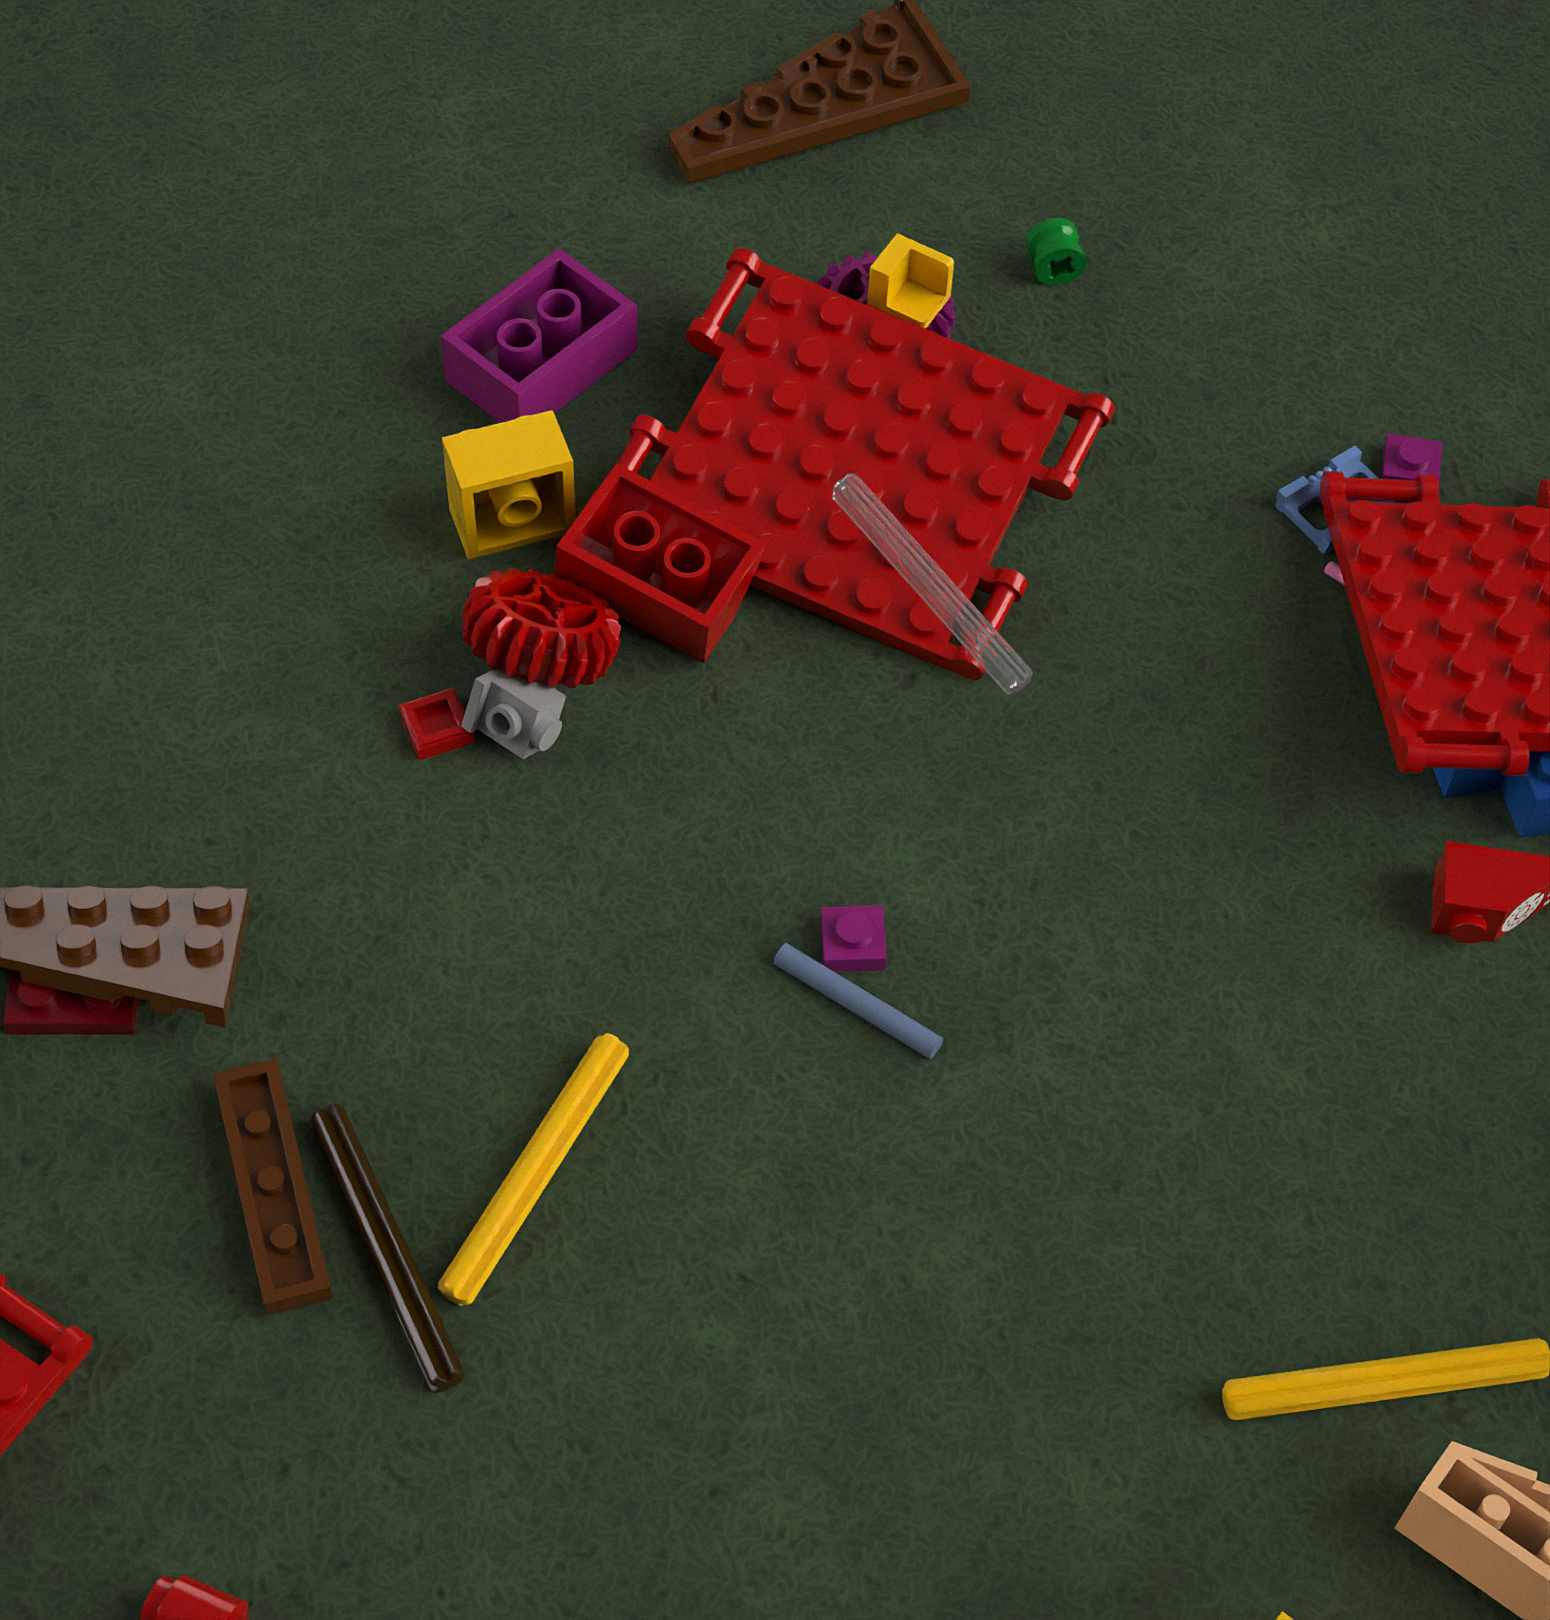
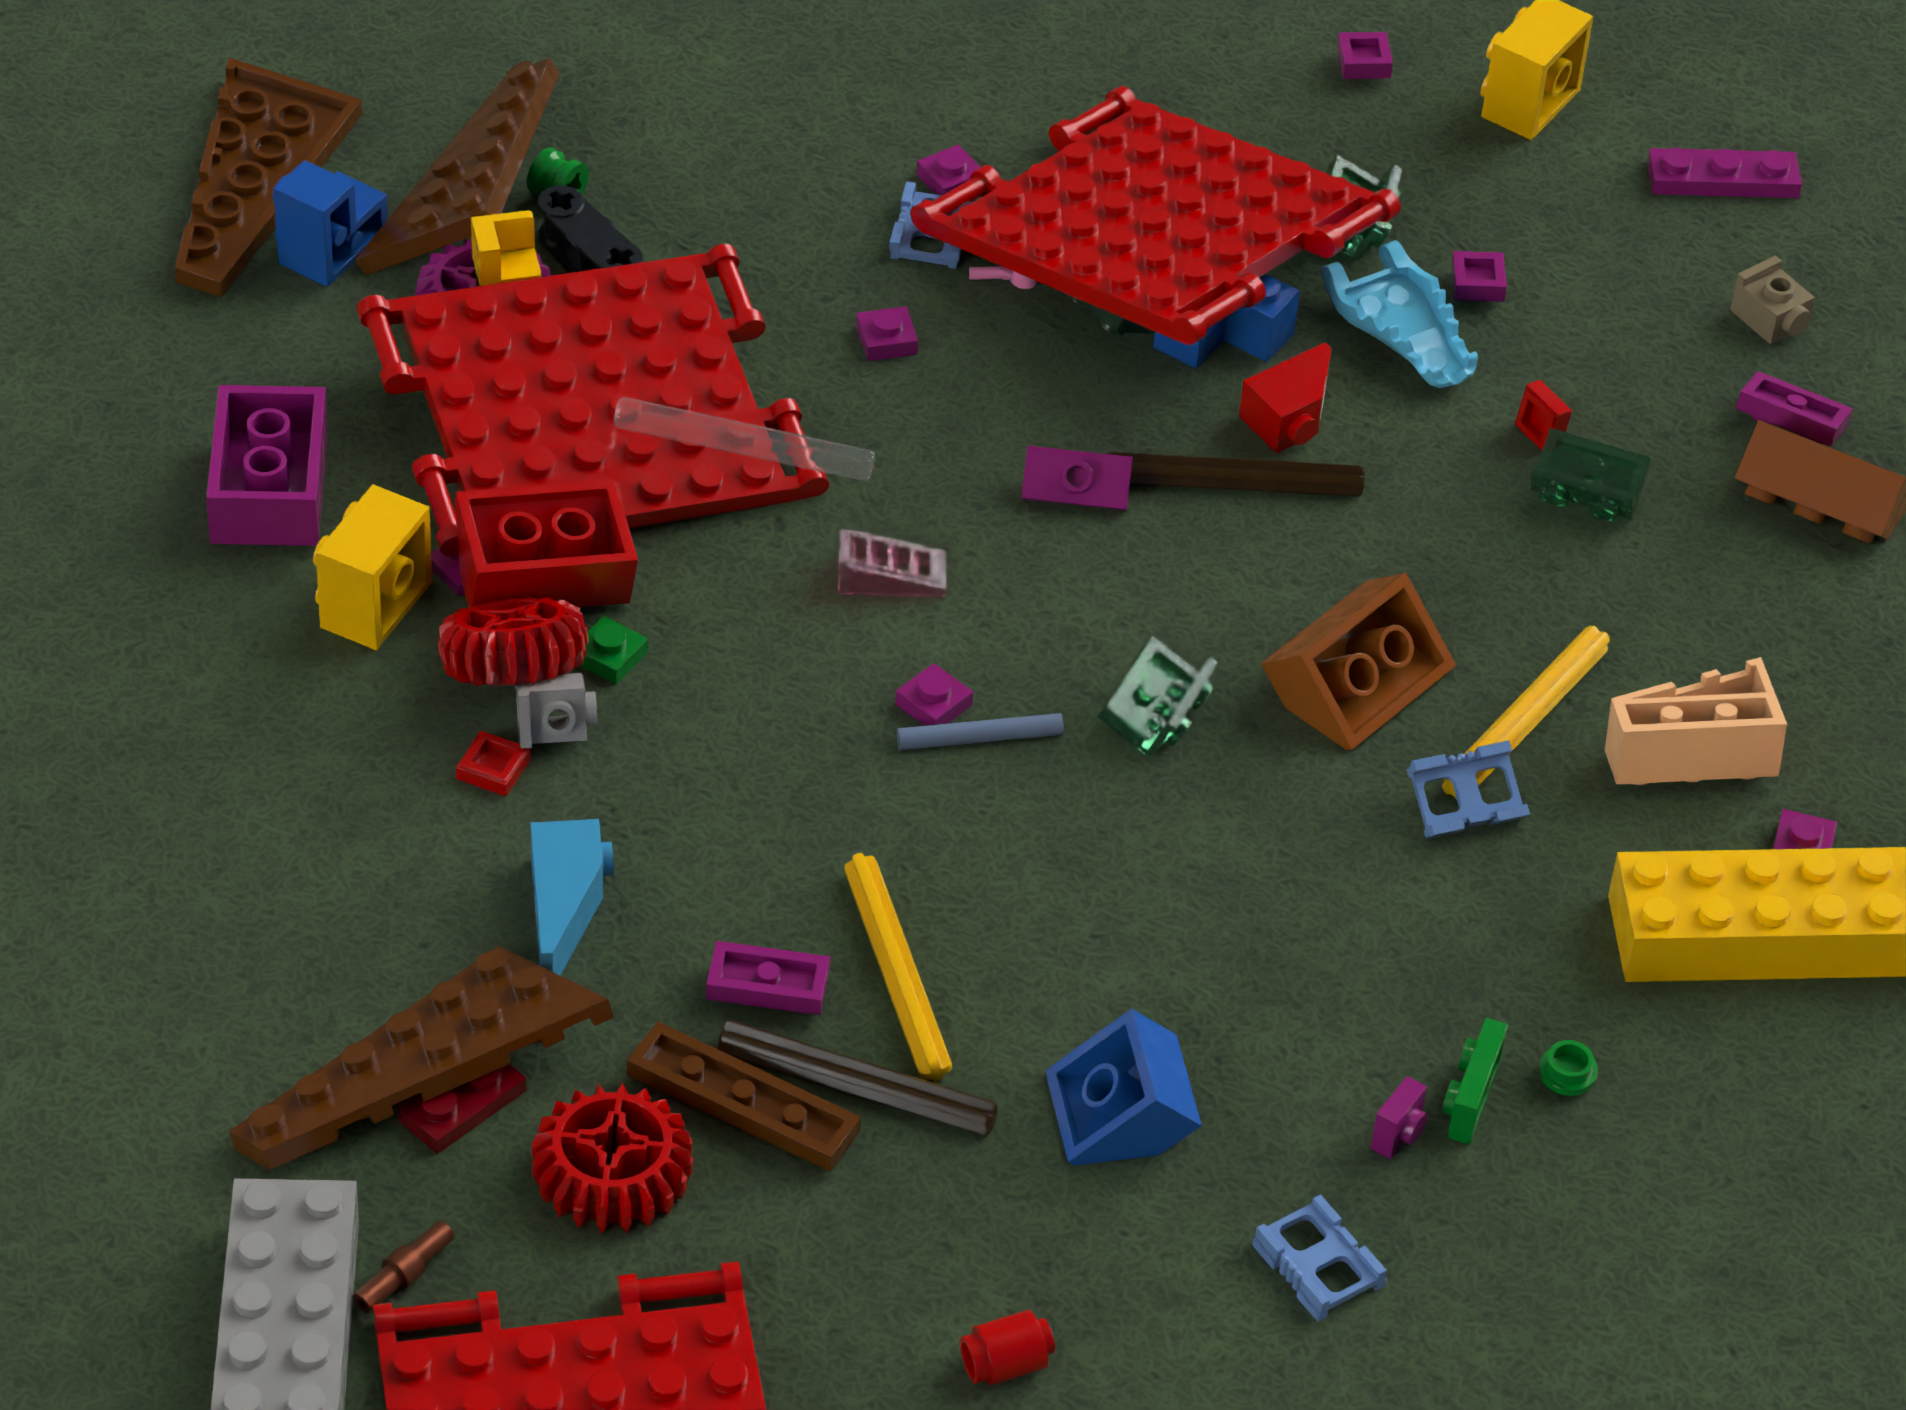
camera: 45 degrees left, 10 degrees down
(121, 1121) = (644, 1173): none -> red gear
(345, 880) = (567, 884): none -> dark azure slope
(416, 1091) = (768, 977): none -> magenta plate
(575, 1459) = (1123, 1093): none -> blue slope
(638, 692) = (613, 649): none -> green plate
(820, 174) = (324, 221): none -> blue brick
(945, 757) = (862, 569): none -> clear pink slope
(987, 201) = (471, 173): none -> reddish brown wing
(1016, 311) = (580, 234): none -> black piece
(1039, 1086) = (1155, 696): none -> clear green bracket
(1190, 572) = (887, 333): none -> magenta plate
(1202, 825) = (1076, 478): none -> magenta plate
(1219, 1437) = (1462, 773): none -> medium blue piece
(1270, 1202) = (1360, 661): none -> dark orange slope
(1363, 927) = (1246, 474): none -> dark brown axle

